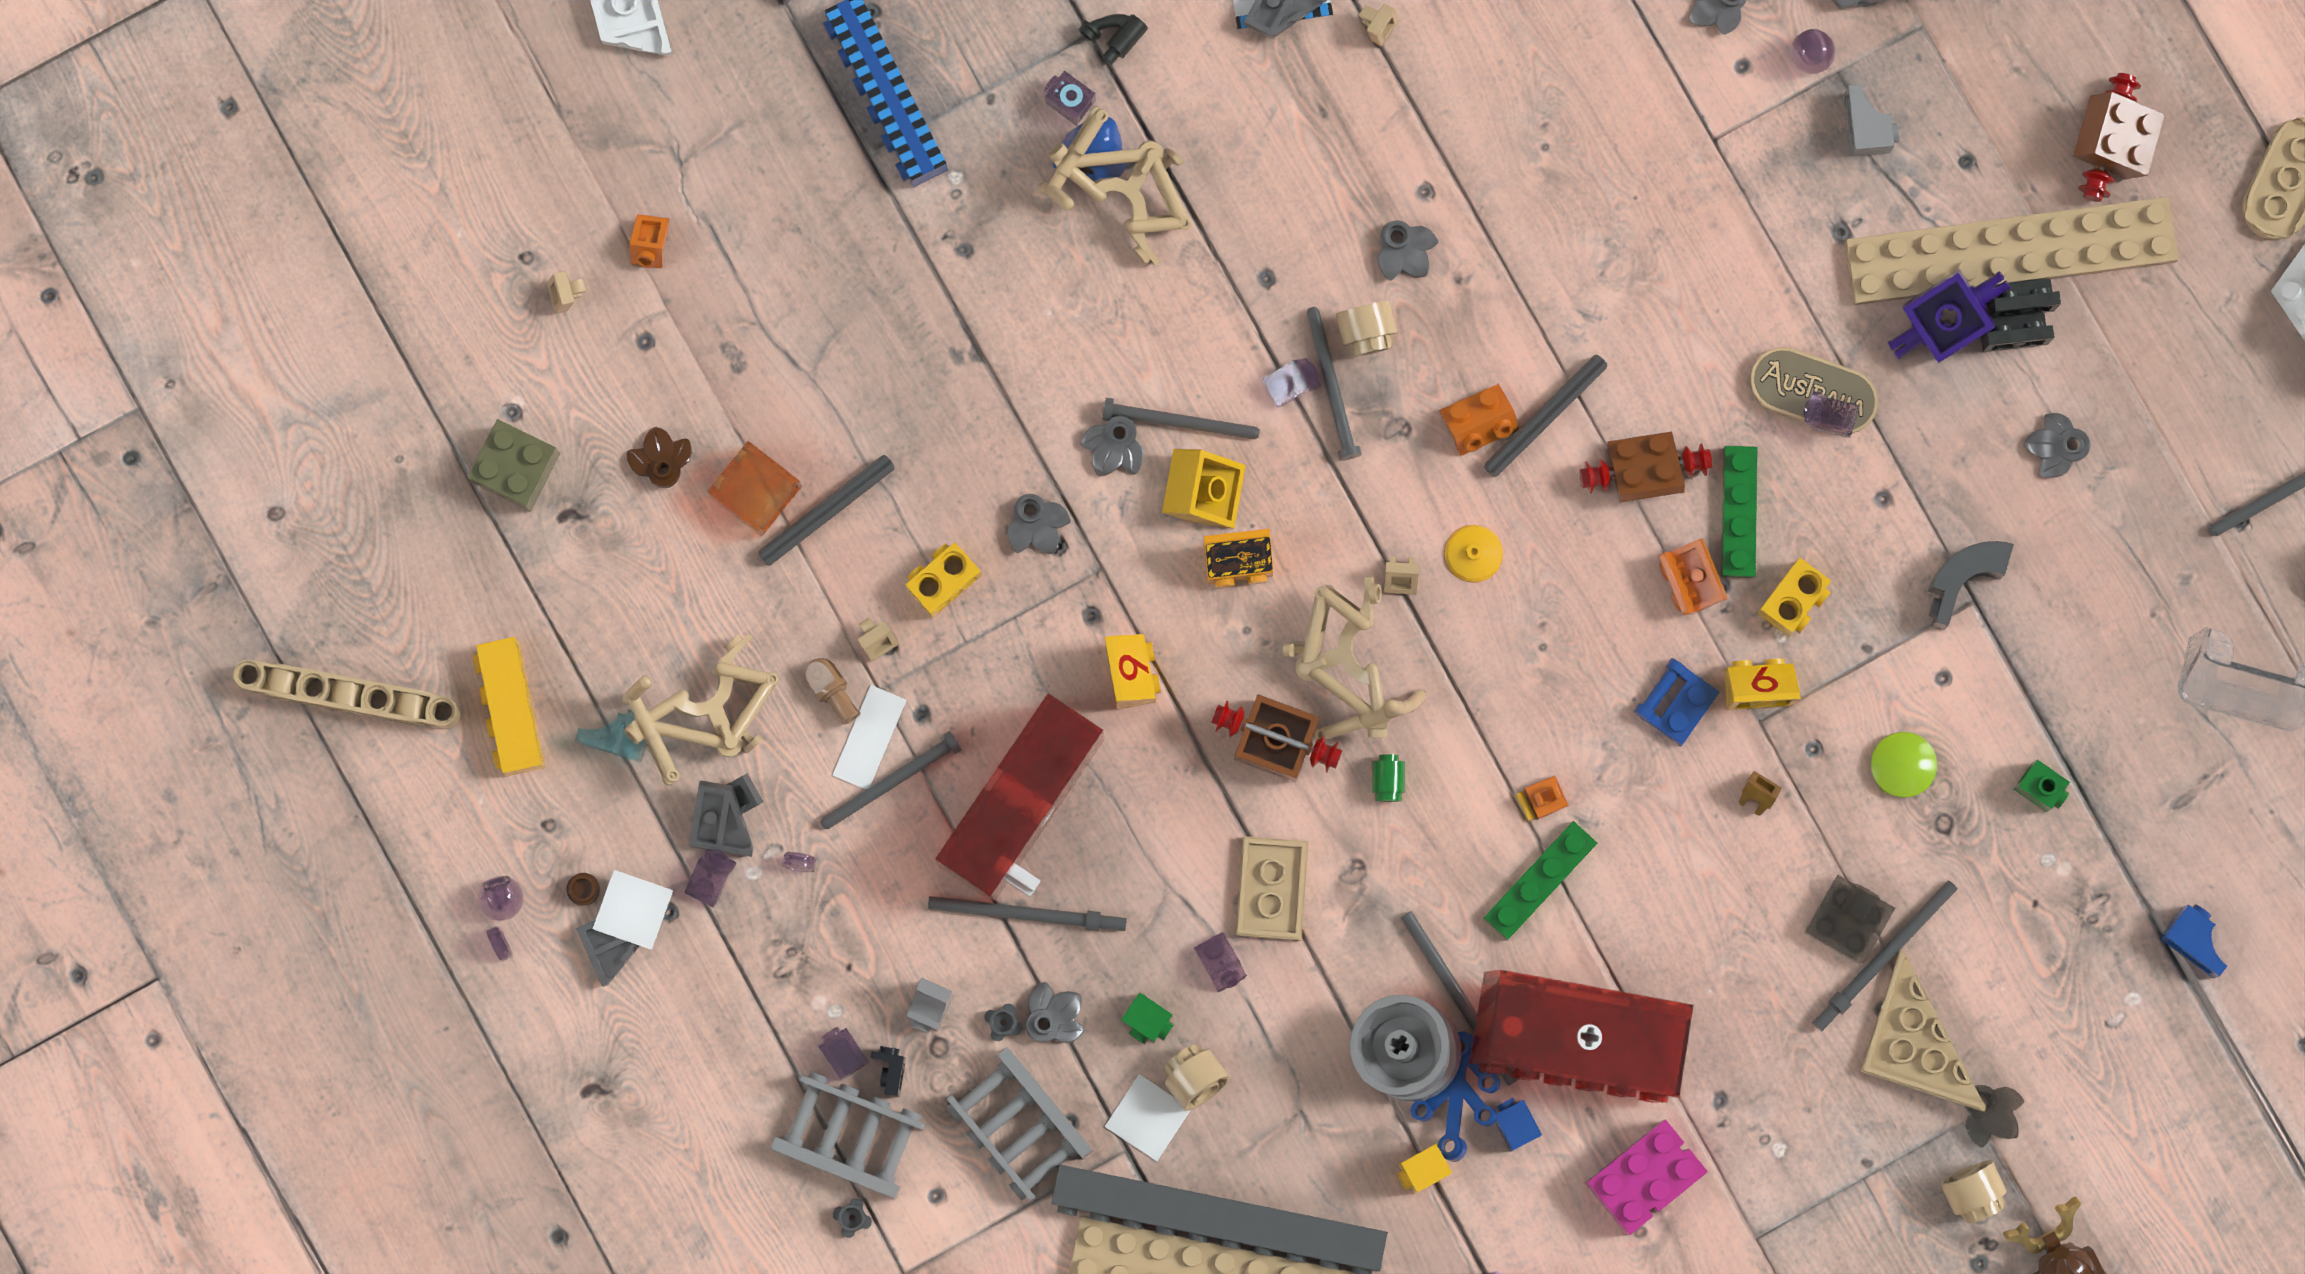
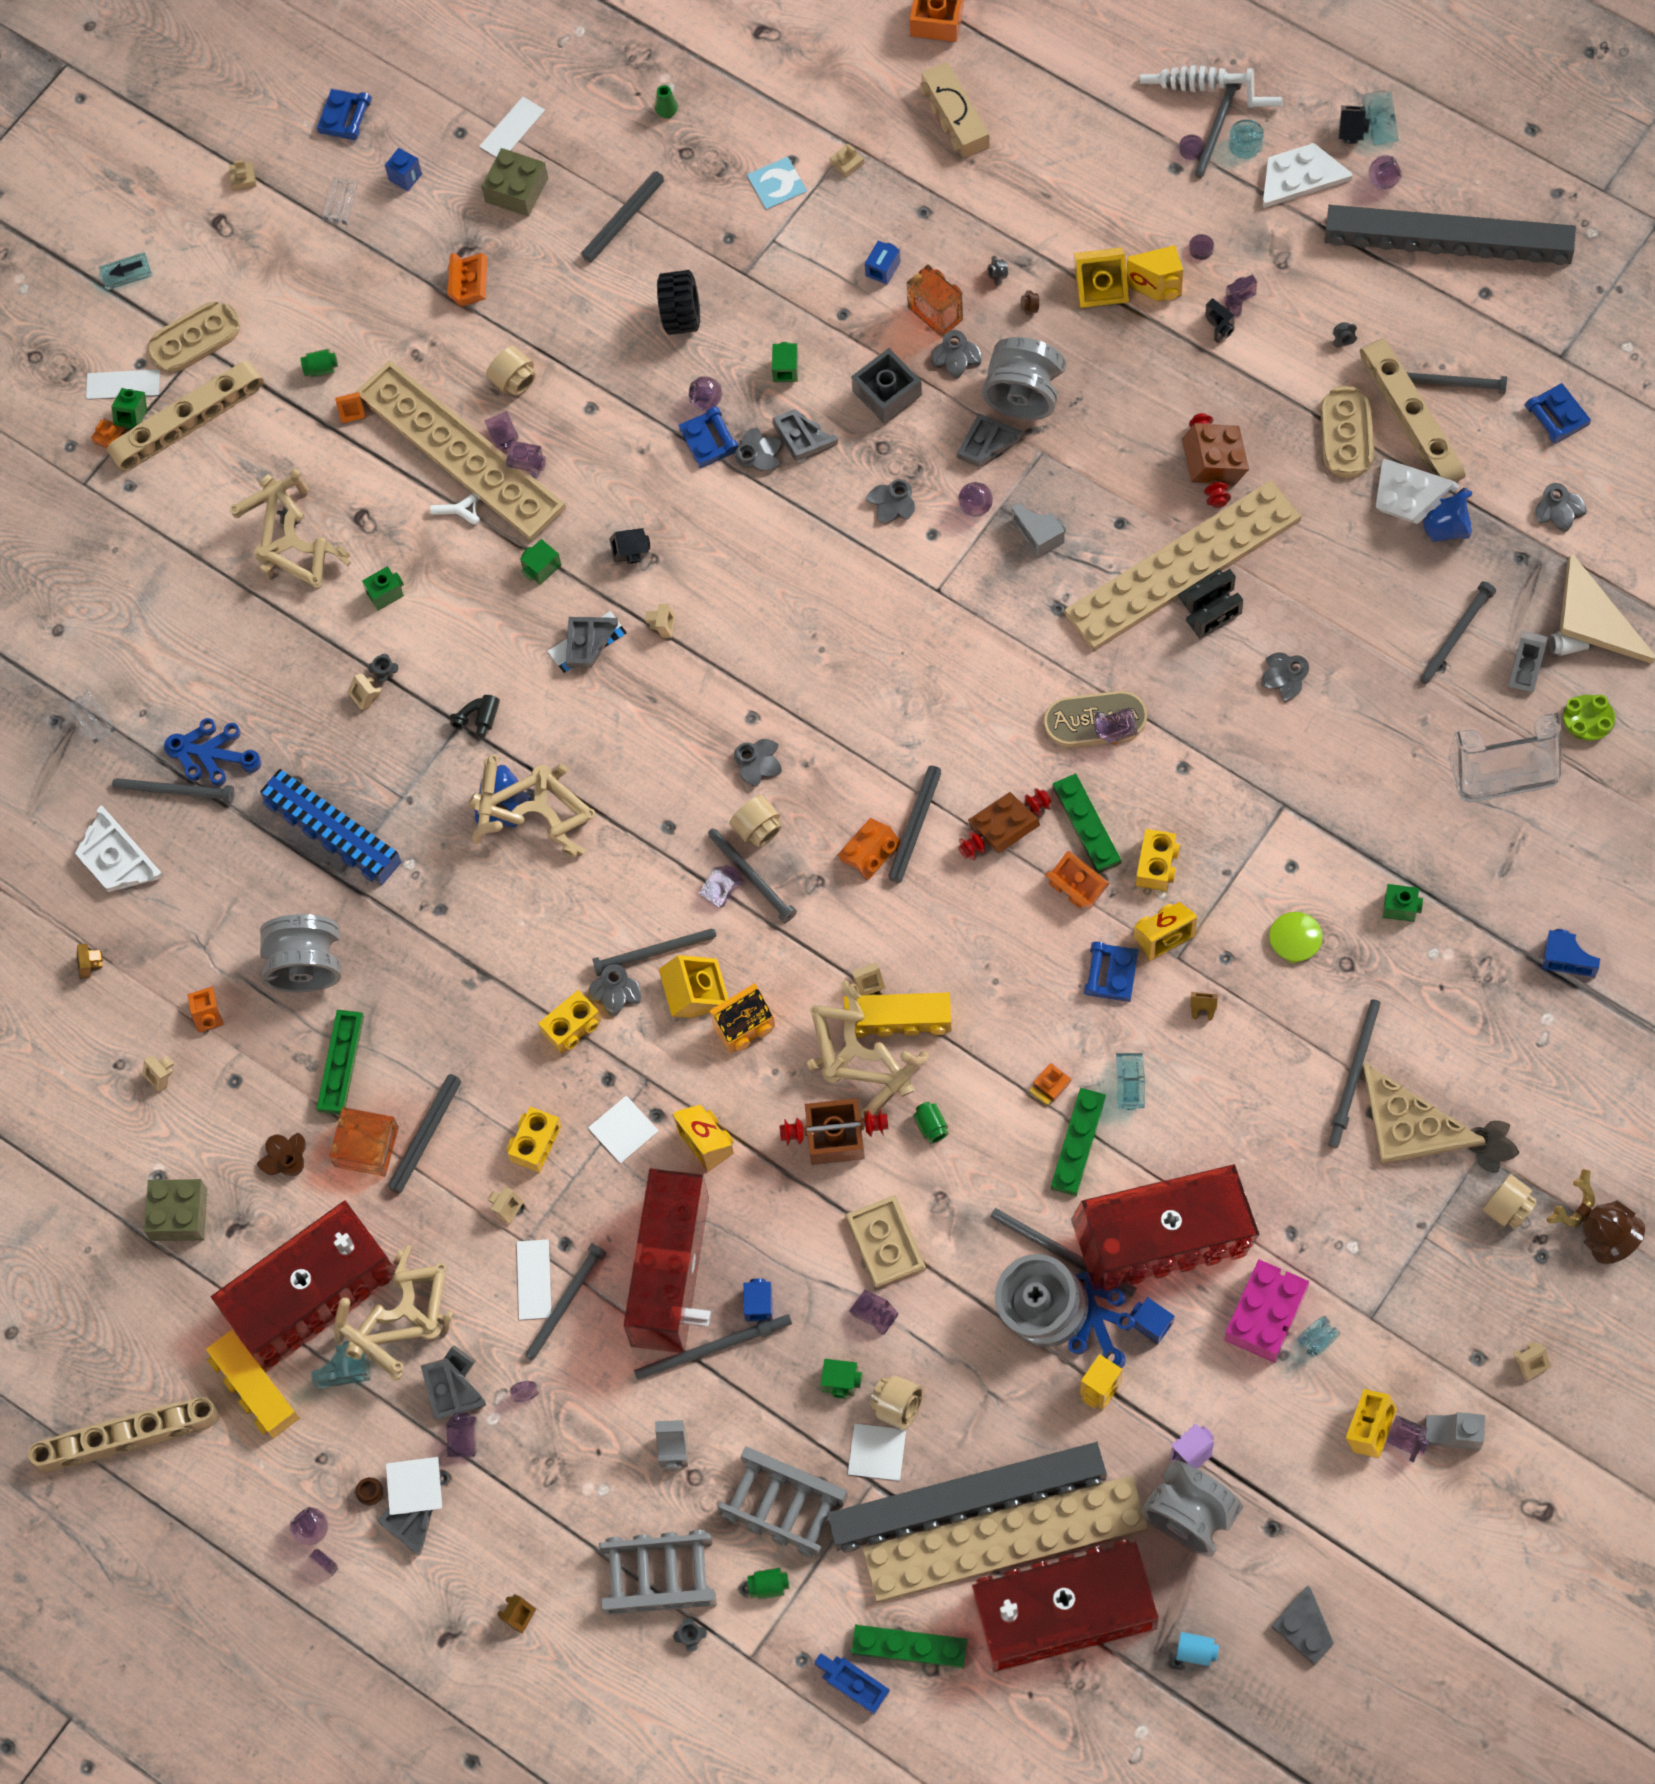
camera: 20 degrees left, 15 degrees down
(543, 117) = (87, 960): none -> pearl gold tile
(566, 627) = (301, 1284): none -> clear red piece
(679, 1104) = (517, 1613): none -> pearl gold tile
(771, 380) = (340, 1061): none -> green plate
(781, 234) = (299, 953): none -> light grey piece
(830, 687) = (488, 1255): medium nougat arm -> none
(843, 1052) = (624, 1514): clear purple brick -> none
(891, 1077) = (669, 1513): black bracket -> none
(960, 1206) = (768, 1583): none -> green brick
(994, 1018) = (733, 1426): dark grey plate -> none
(1037, 529) = (587, 1073): flat silver plate -> none
(1043, 452) = (564, 1017): none -> yellow brick
(1047, 613) = (623, 1129): none -> white sticker
(1057, 1011) = (771, 1407): flat silver plate -> none
(1069, 97) = (465, 770): clear purple brick -> none
(1100, 887) = (758, 1300): none -> blue brick
(1421, 638) = (904, 1014): none -> yellow brick
(1473, 553) = (912, 941): yellow piece -> none
(1632, 841) = (1130, 1081): none -> clear light blue arch
(1686, 1234) = (1318, 1336): none -> clear light blue wheel
(1849, 919) = (1315, 1059): clear smoke plate -> none
(1943, 336) = (1164, 638): dark purple brick -> none
(1977, 560) = (1269, 776): dark grey arch -> none

